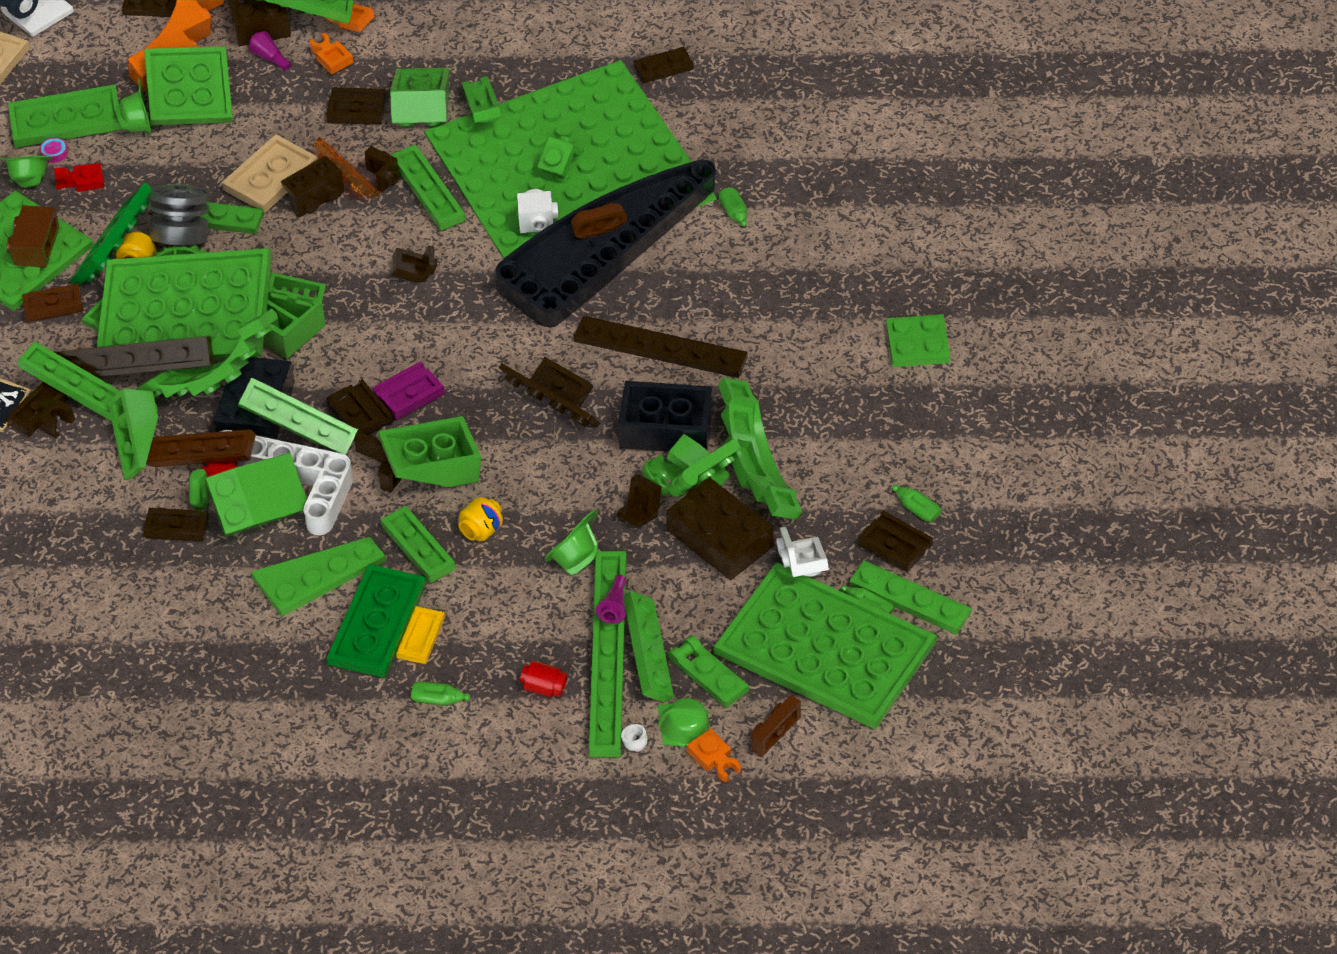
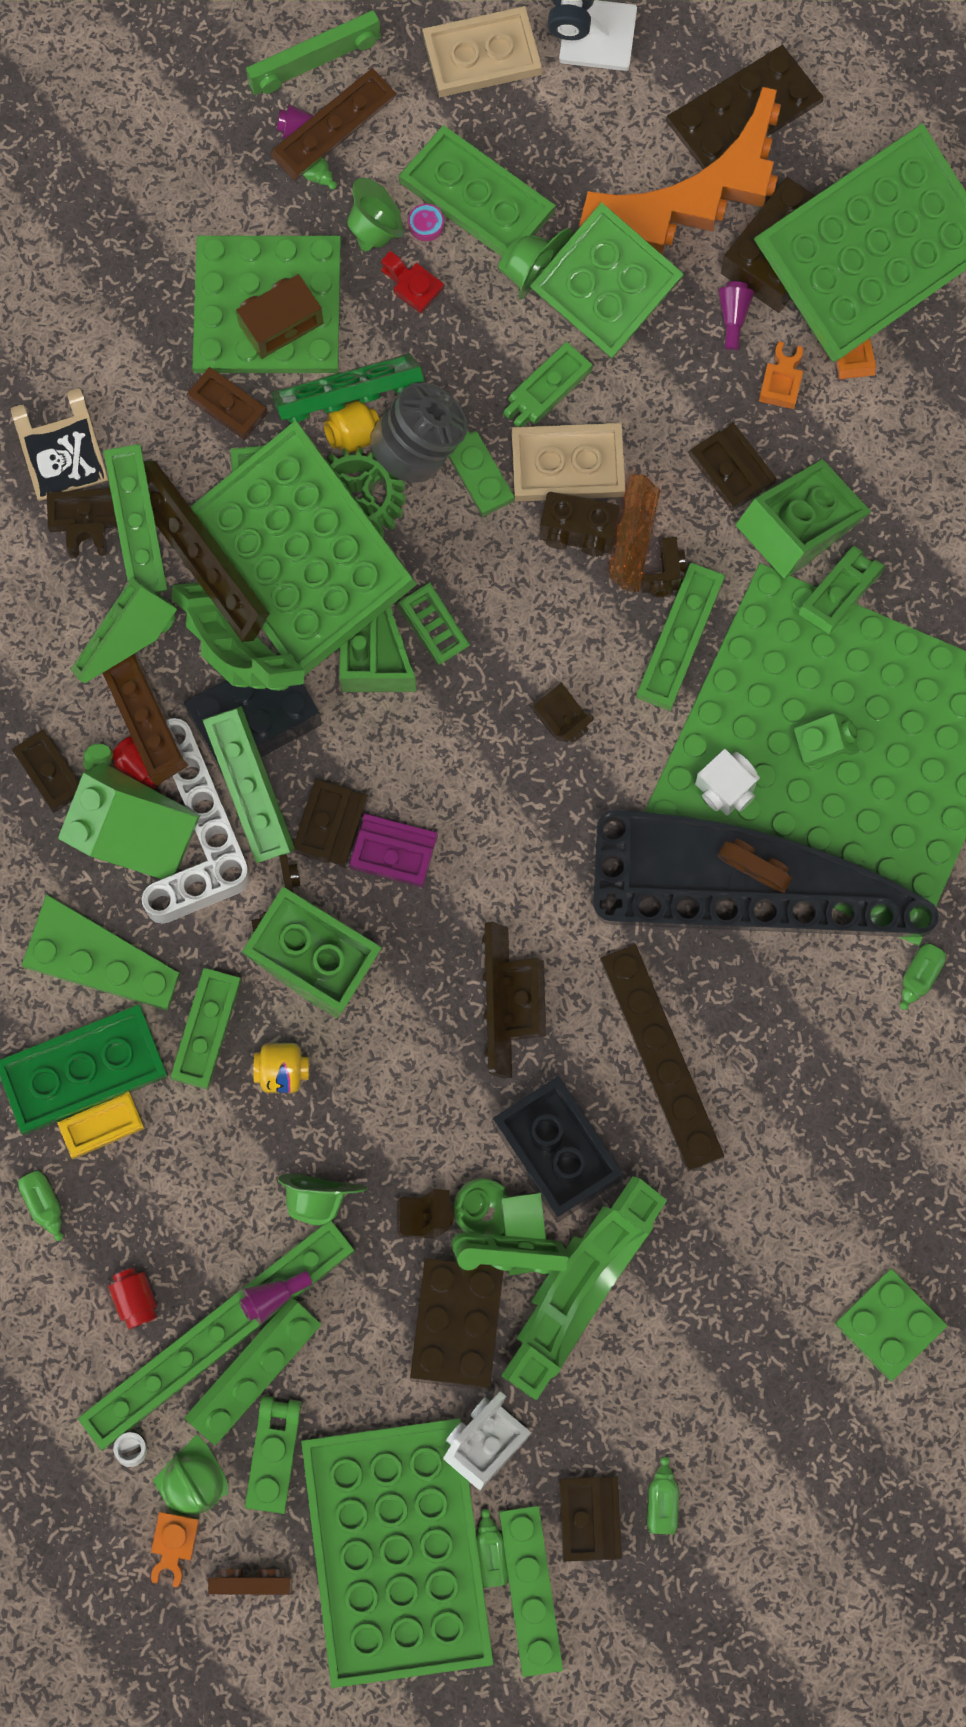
camera: 50 degrees right, 25 degrees up
(215, 153) = (548, 385): none -> bright green hinge

